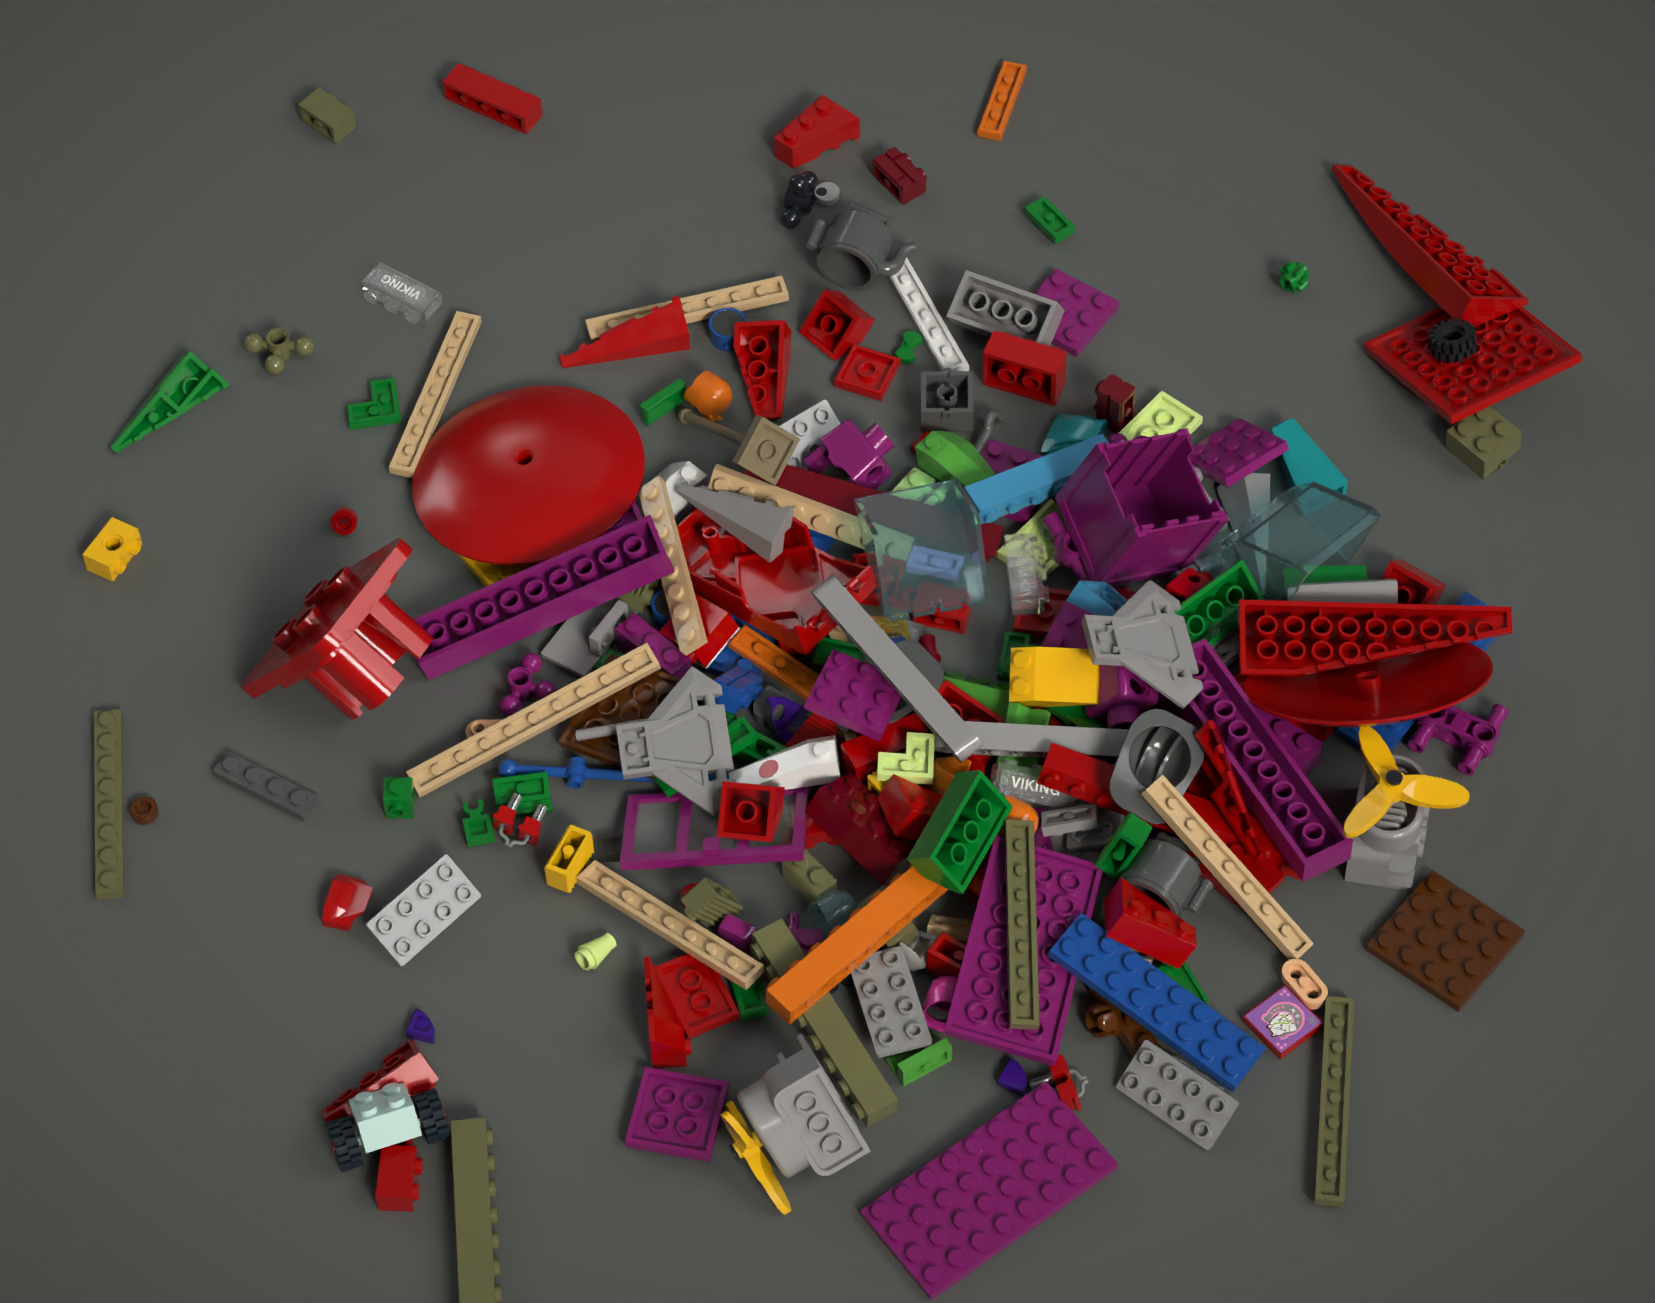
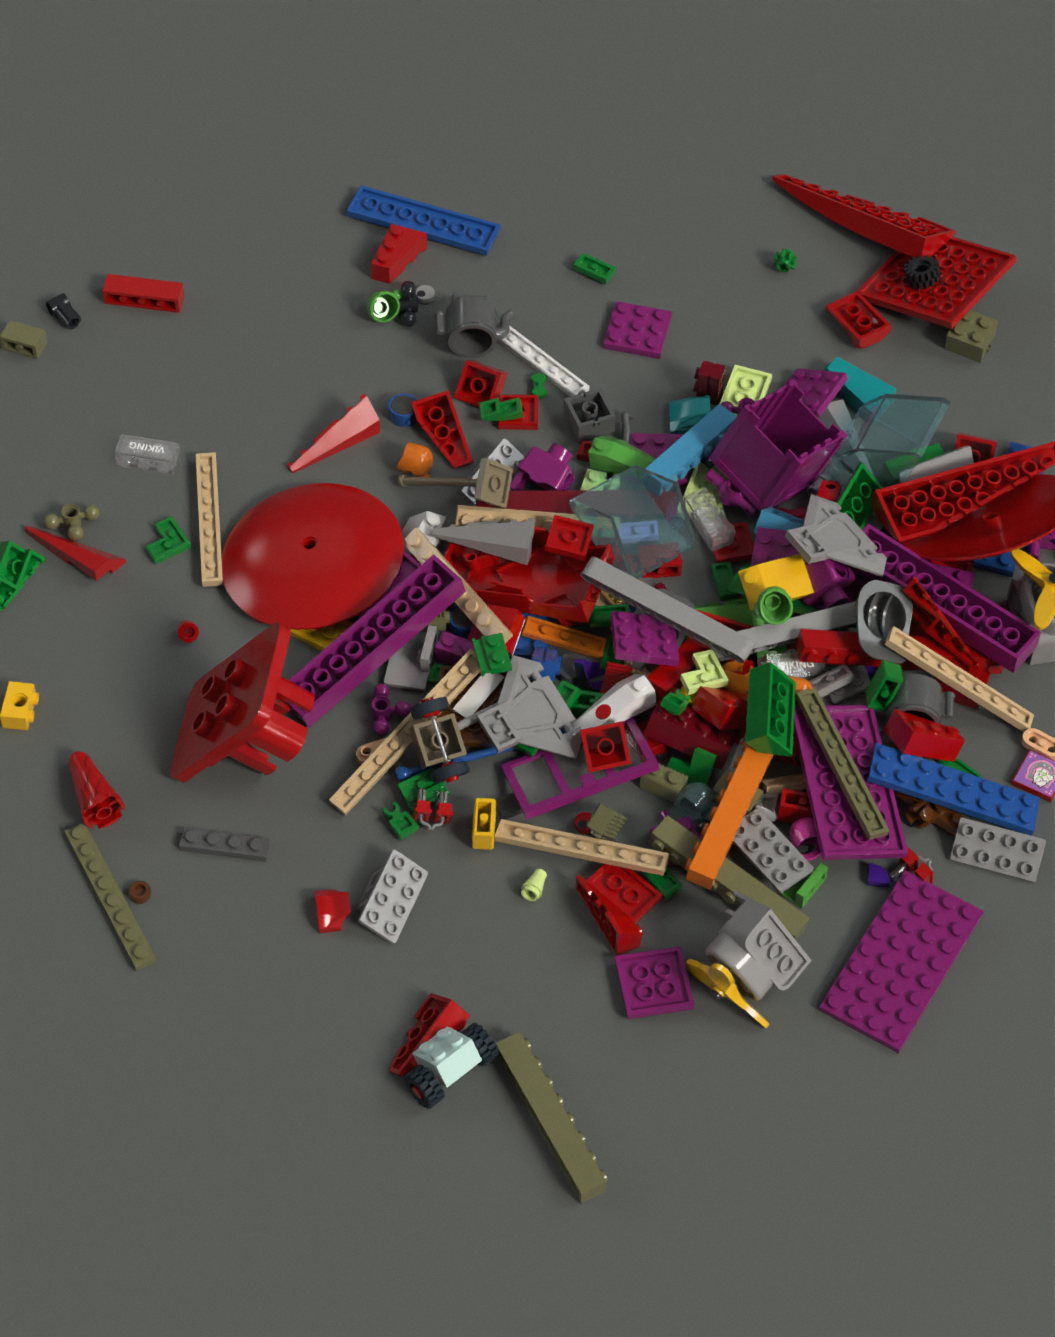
camera: 25 degrees left, 0 degrees up
(144, 677) = (95, 797): none -> red cone
(272, 397) = (88, 559): none -> red wedge
(389, 91) = (61, 307): none -> black piece
(398, 1176) = (474, 1099): red brick -> none
(399, 797) = (333, 820): green brick -> none
(421, 1028) = (433, 983): dark purple tile -> none
(556, 741) = (438, 740): none -> brick
(637, 699) = (477, 694): none -> white sticker
(662, 402) = (383, 475): green tile -> none
(666, 657) = (492, 654): none -> green plate
(702, 305) = (378, 397): tan plate -> none
(736, 932) = (633, 836): magenta piece -> none
(764, 193) = (383, 305): none -> bright green piece
(828, 544) = (569, 537): none -> red plate
(838, 363) = (500, 411): none -> green slope
(854, 786) = (675, 702): none -> green plate
(855, 875) = (699, 769): none -> green tile
(871, 100) = (438, 223): none -> blue plate
(899, 175) = (472, 266): dark red brick -> none
(991, 305) = (601, 341): light grey brick -> none
(1002, 100) = (516, 195): orange tile -> none
(1024, 367) = (633, 375): red brick -> none
(1028, 704) = (773, 606): none -> bright green piece
(1348, 379) = (859, 320): none -> red slope

